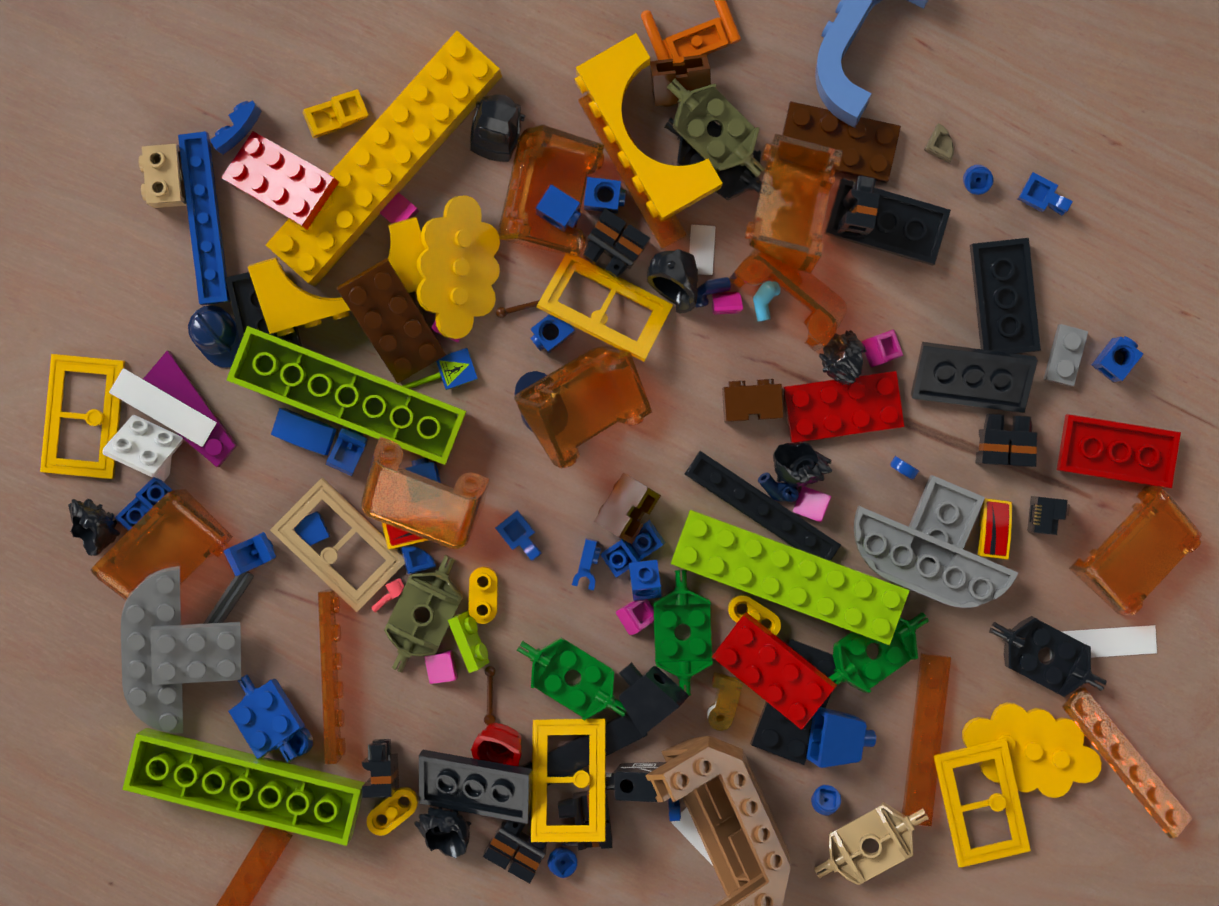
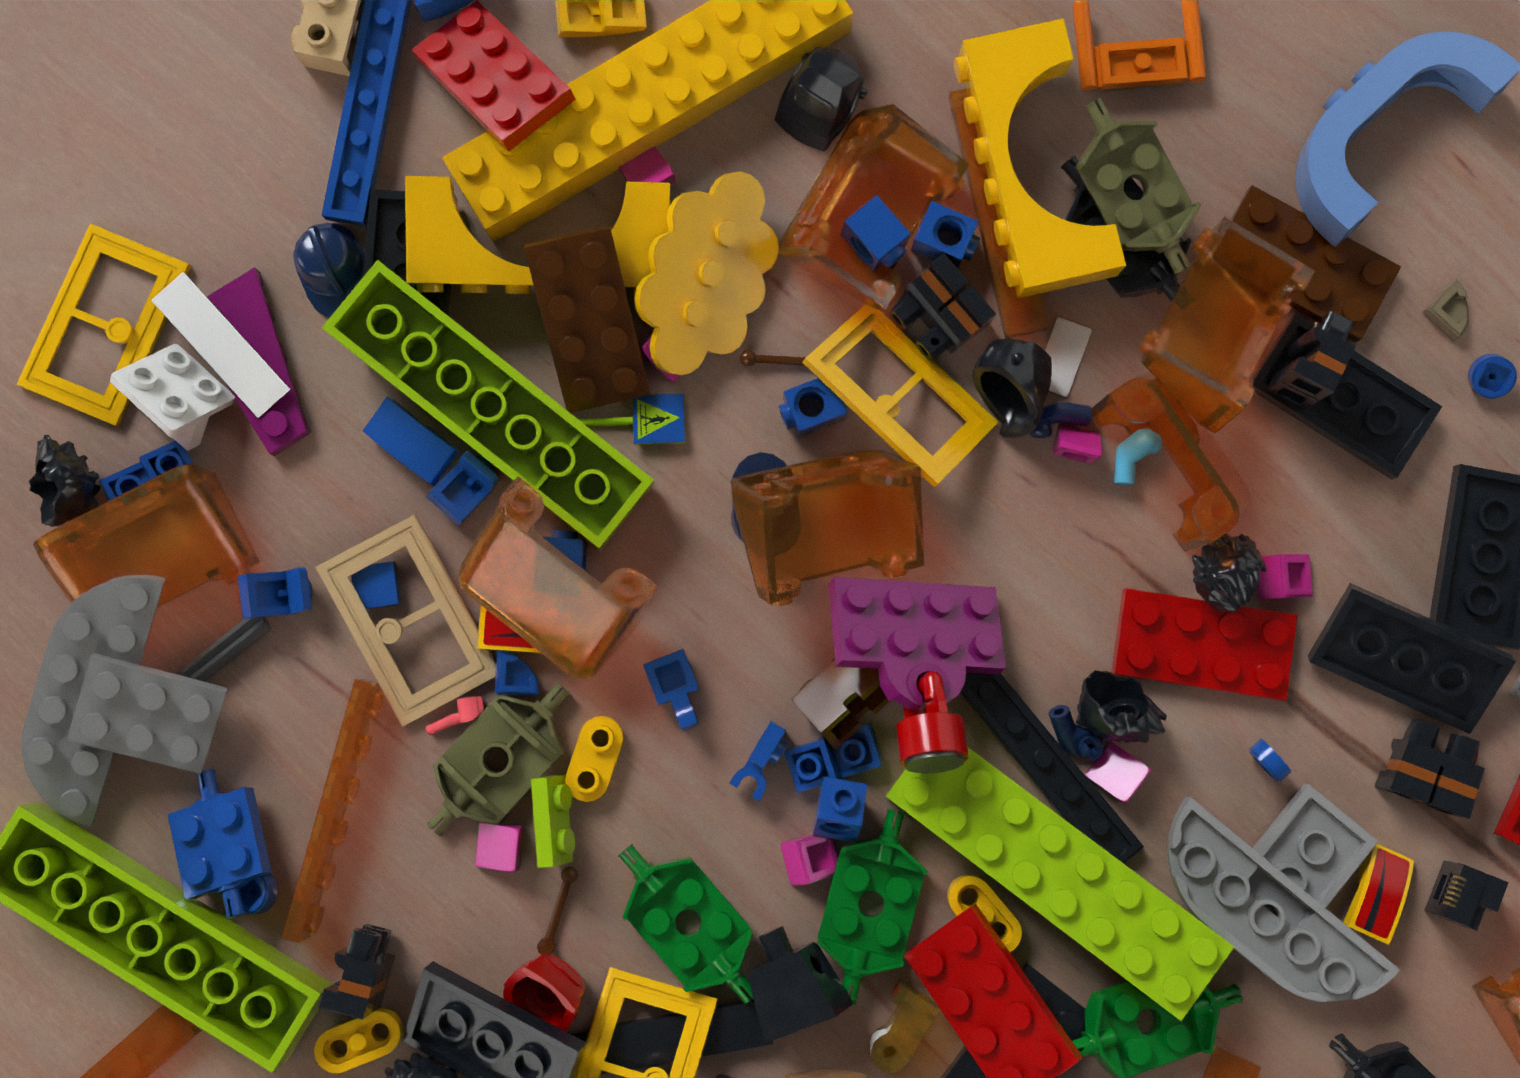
camera: 20 degrees right, 5 degrees down
(665, 464) = (923, 647): none -> magenta plate
(691, 74) = (1125, 101): reddish brown brick -> none
(759, 399) = (1087, 596): reddish brown brick -> none

